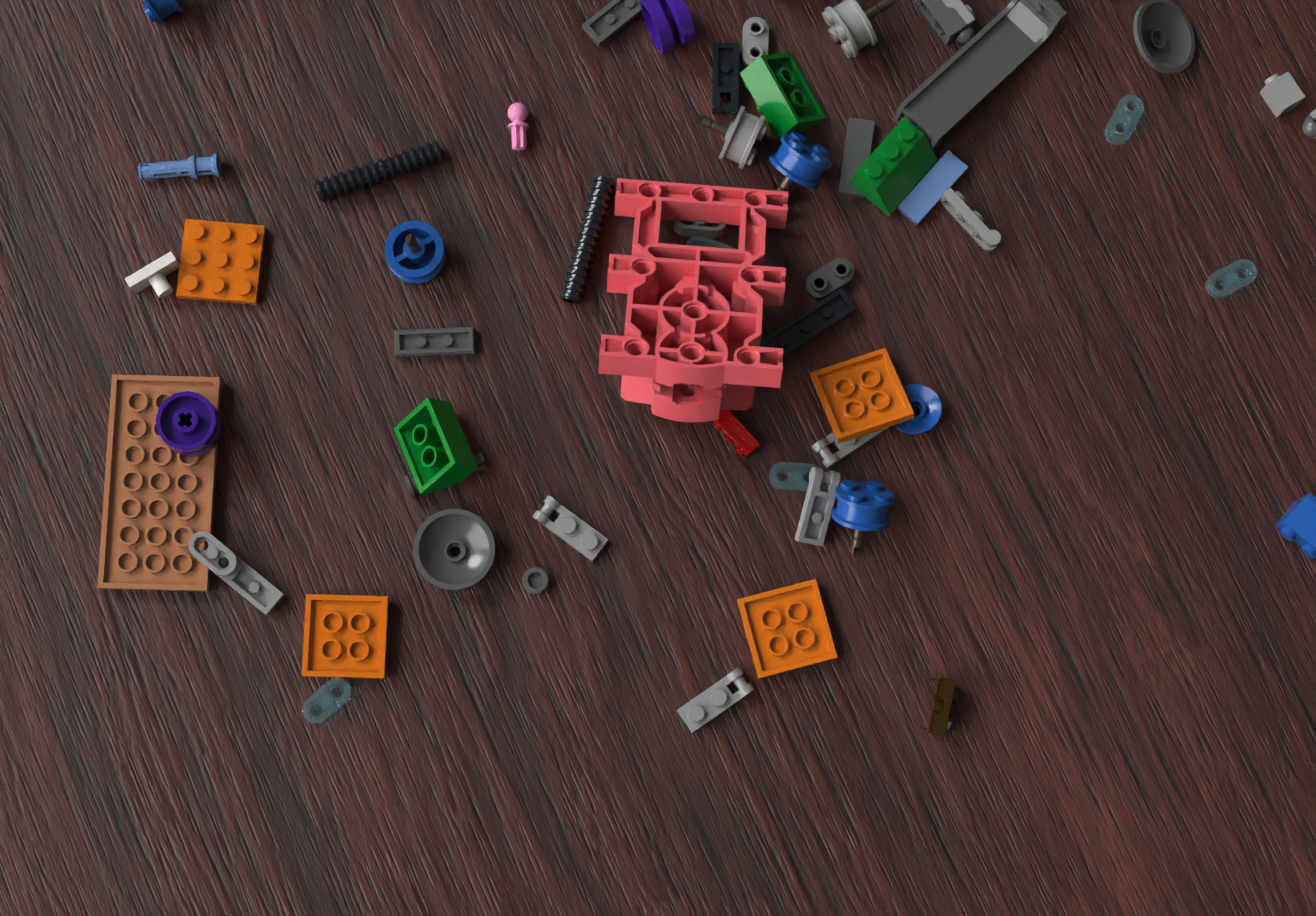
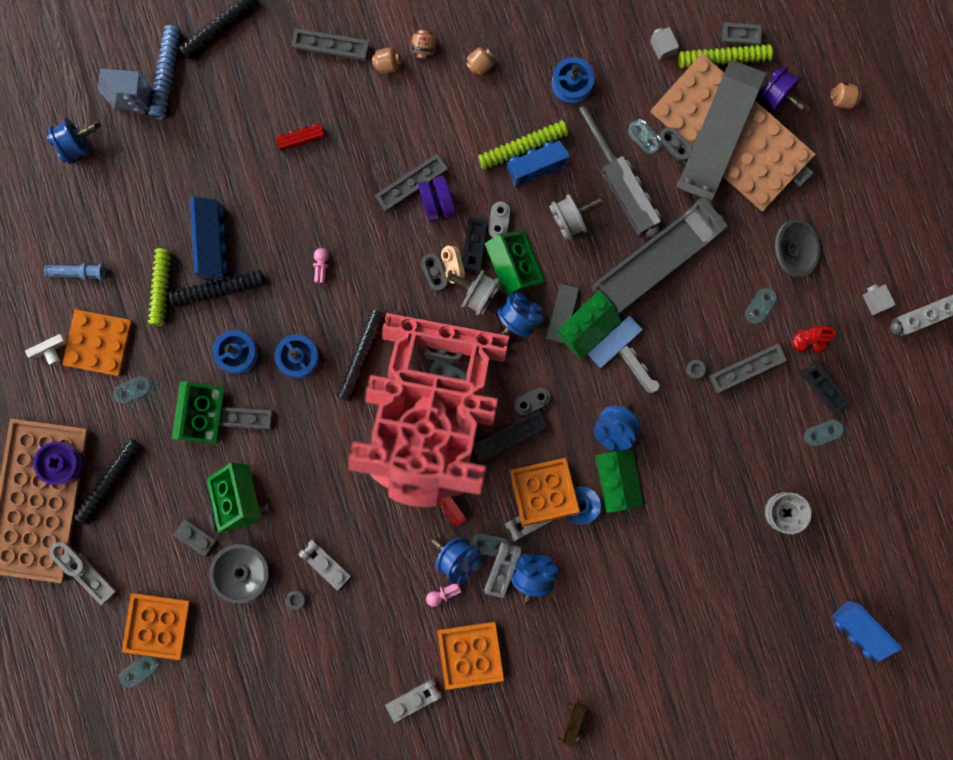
camera: 10 degrees right, 5 degrees up
(256, 445) = (107, 481): none -> black piece
(276, 317) = (132, 389): none -> clear light blue plate
(300, 177) = (159, 287): none -> lime piece
(361, 104) = (208, 238): none -> blue slope
(371, 339) = (197, 412): none -> green slope
(385, 511) = (195, 537): none -> dark grey plate
(501, 249) = (297, 356): none -> blue wheel
(677, 120) = (434, 273): none -> dark grey plate
(699, 103) = (452, 261): none -> light nougat plate
(728, 557) = (435, 598): none -> bright pink axle
(754, 497) = (457, 559): none -> blue wheel
(951, 297) = (617, 427): none -> blue wheel
(960, 371) = (619, 480): none -> green slope
(1047, 213) = (696, 369): none -> dark grey tile
(1117, 203) = (747, 368): none -> dark grey plate
(1205, 148) = (816, 336): none -> red piece
(1208, 376) = (798, 509): none -> light grey wheel
(1225, 217) = (825, 387): none -> black plate

